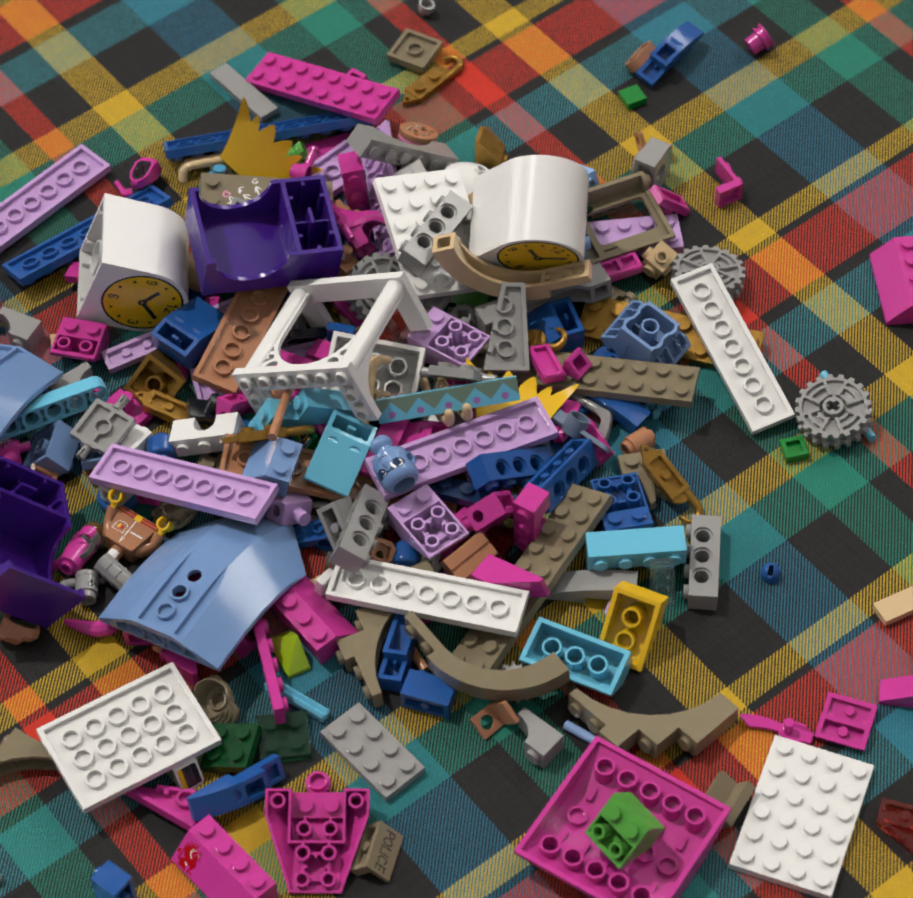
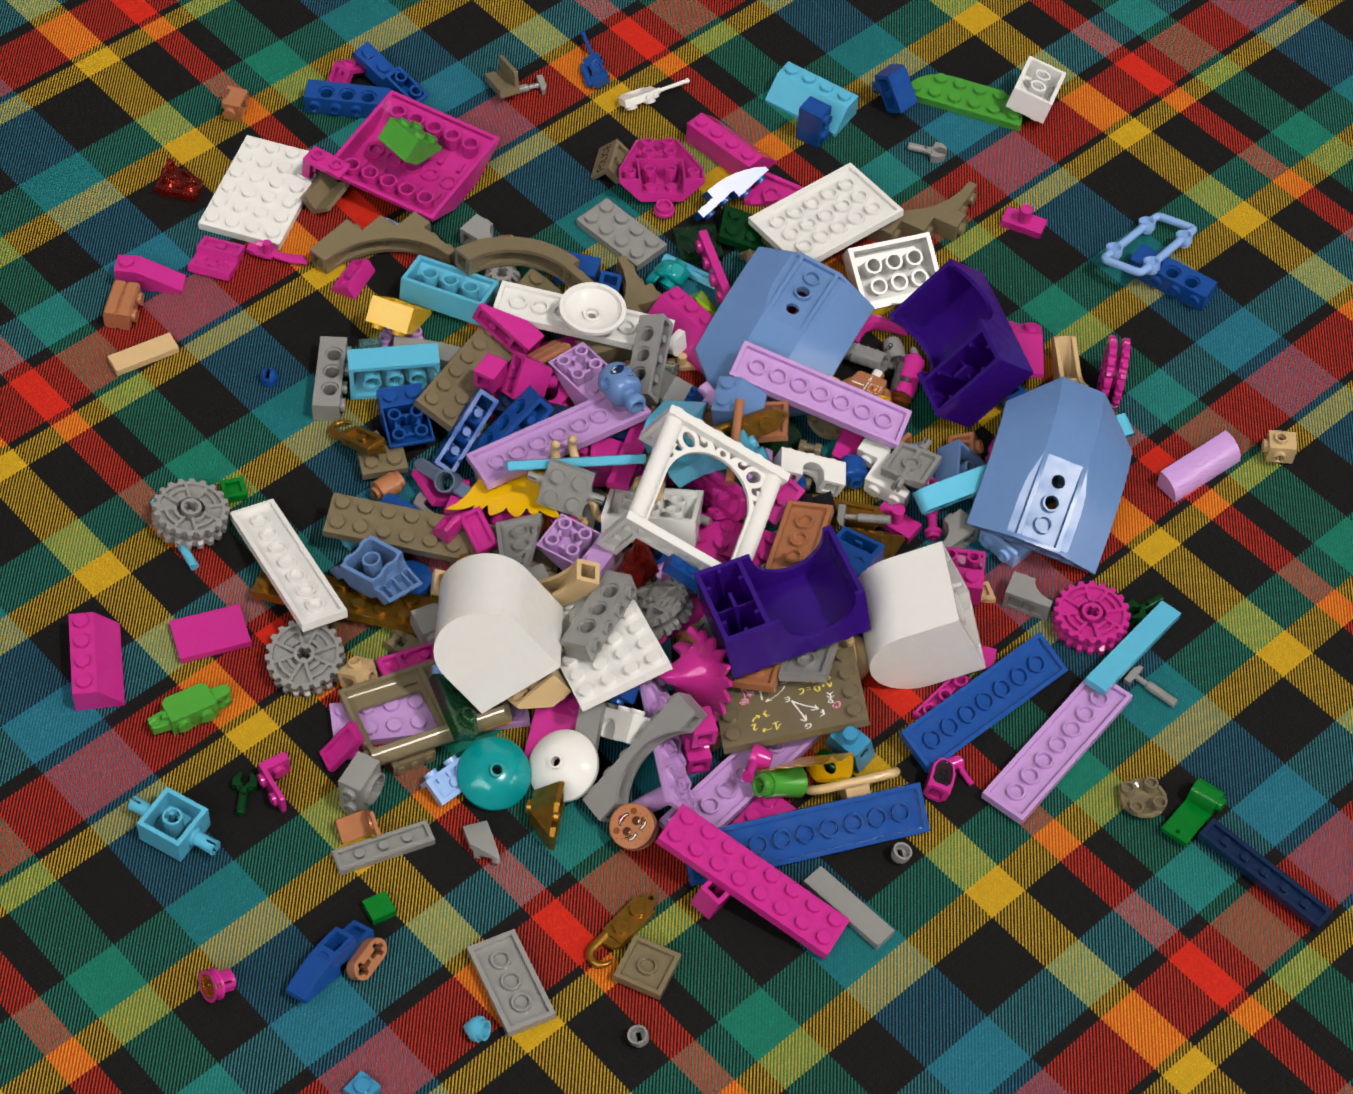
camera: 170 degrees right, 0 degrees up
(58, 687) = (891, 269): none -> white slope
(163, 393) = (861, 517): none -> light grey piece
(186, 123) = (905, 853): none -> light grey hinge
(325, 681) = (669, 274): none -> teal head
(416, 562) = (592, 309): none -> white dish
(525, 42) = (511, 982): none -> light grey plate
(547, 139) = (481, 841): none -> light grey slope
(552, 14) = (478, 1028): none -> medium azure plate
(625, 141) = (383, 847): none -> light grey tile
(687, 692) = (354, 278): none -> dark pink slope
(730, 811) = (320, 160): none -> dark pink bracket
(753, 183) = (243, 791): none -> dark green bar
(799, 312) = (210, 633): none -> dark pink tile
(808, 241) = (190, 708): none -> bright green hinge
(810, 144) = (174, 824): none -> medium azure brick

